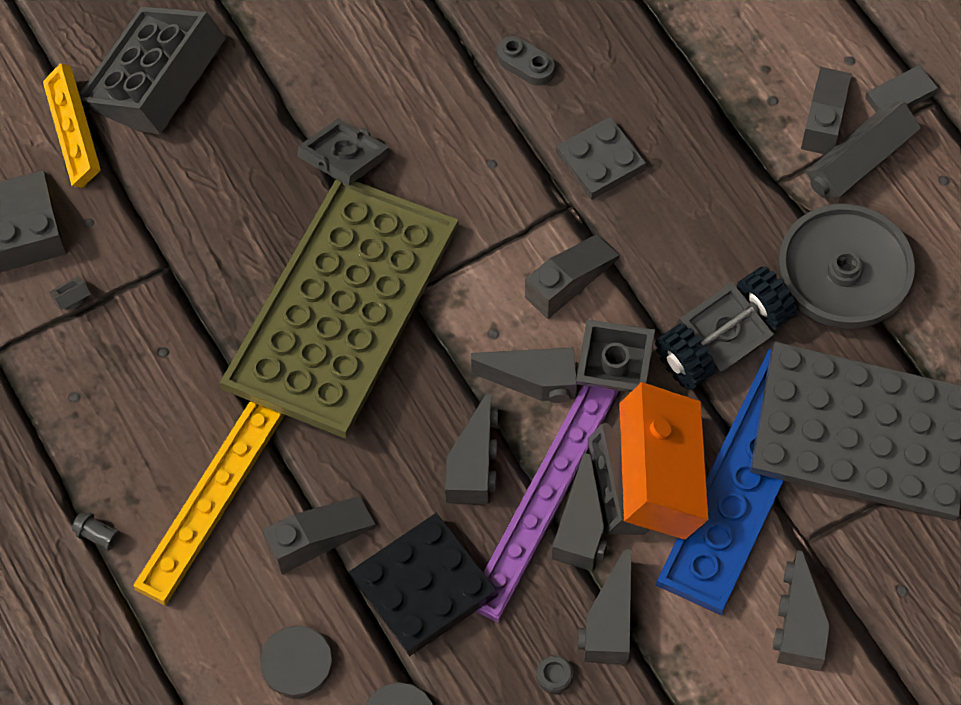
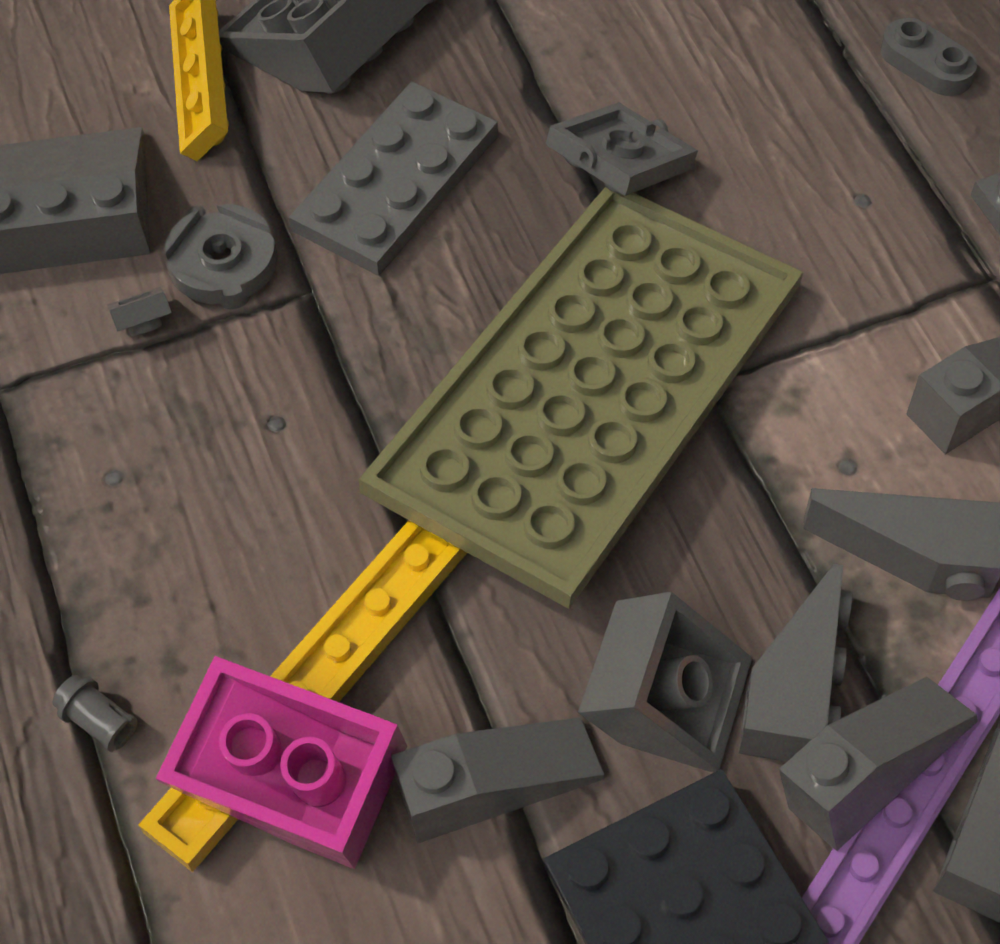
camera: 10 degrees right, 5 degrees down
(113, 268) = (225, 280): none -> dark grey plate
(205, 540) = (284, 760): none -> dark pink slope
(207, 184) = (394, 177): none -> dark grey plate
(403, 470) = (666, 681): none -> dark grey slope
(512, 495) = (871, 758): none -> dark grey slope

